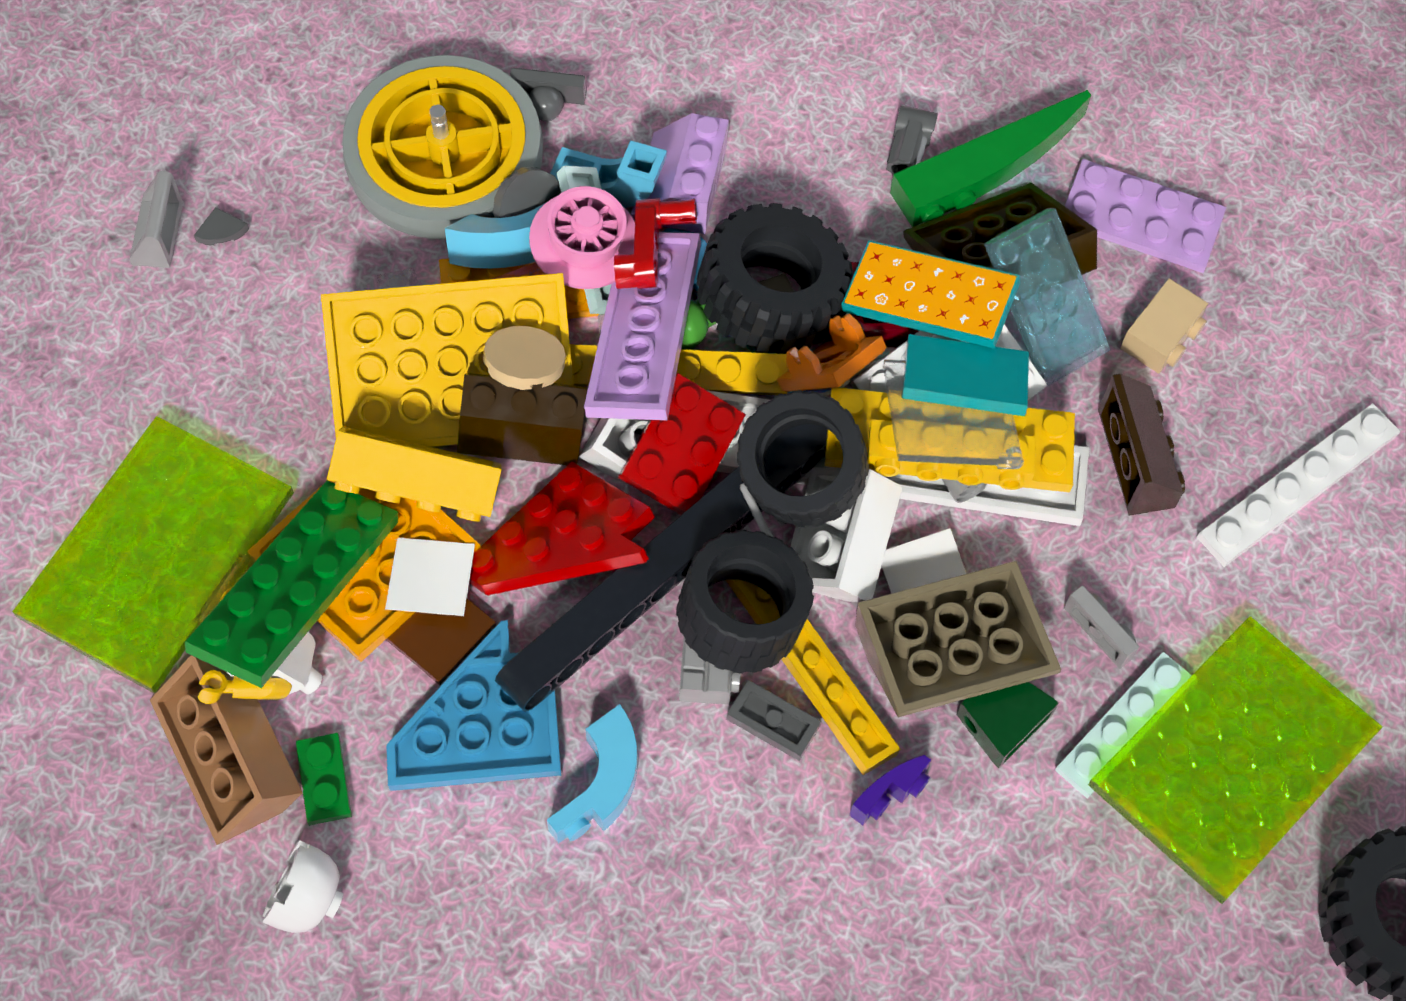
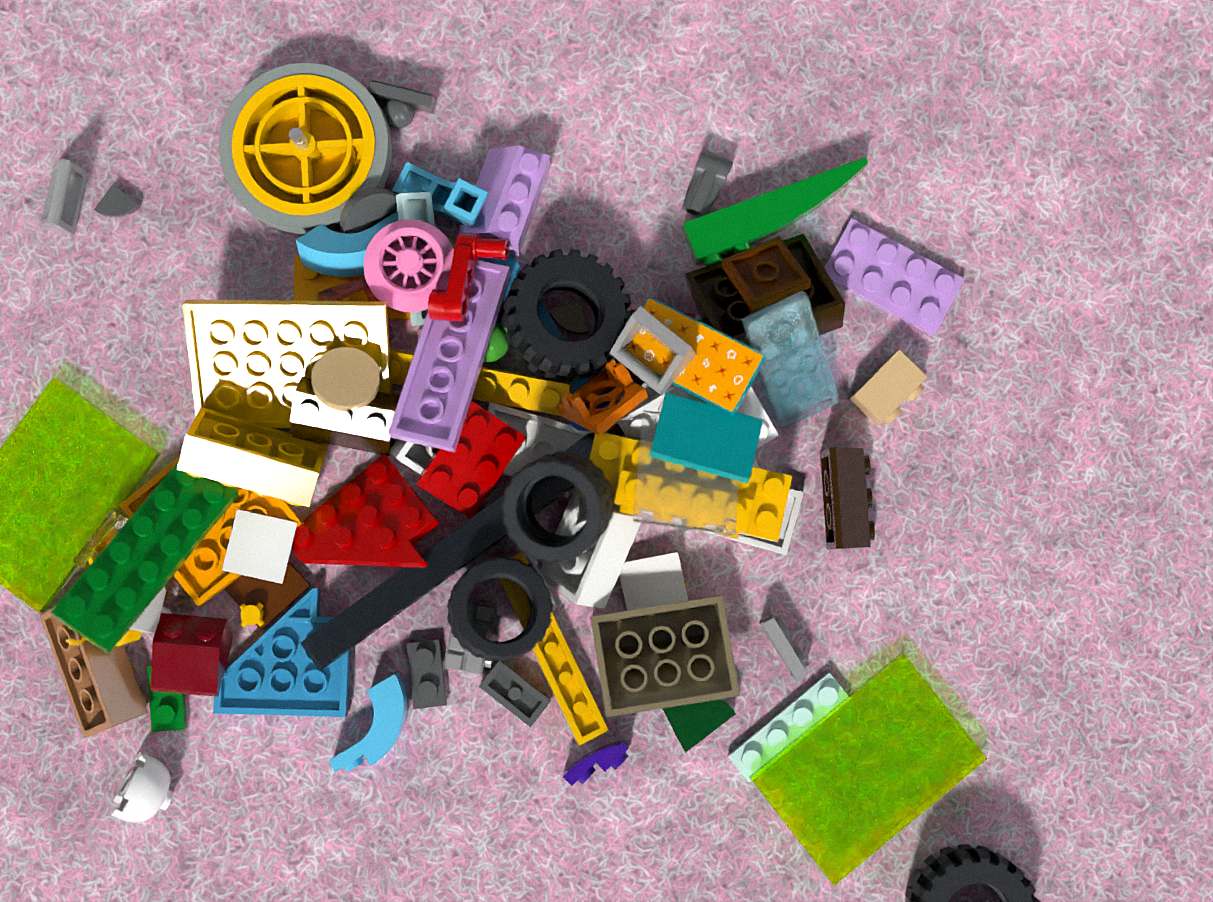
camera: 10 degrees right, 20 degrees up
(353, 709) = (190, 654): none -> dark red slope
(427, 661) = (251, 614): none -> yellow piece
(657, 712) = (426, 674): none -> dark grey plate
(895, 269) = (643, 320): none -> light grey tile
(992, 212) = (766, 274): none -> reddish brown tile
(1298, 485) = (970, 540): white plate -> none

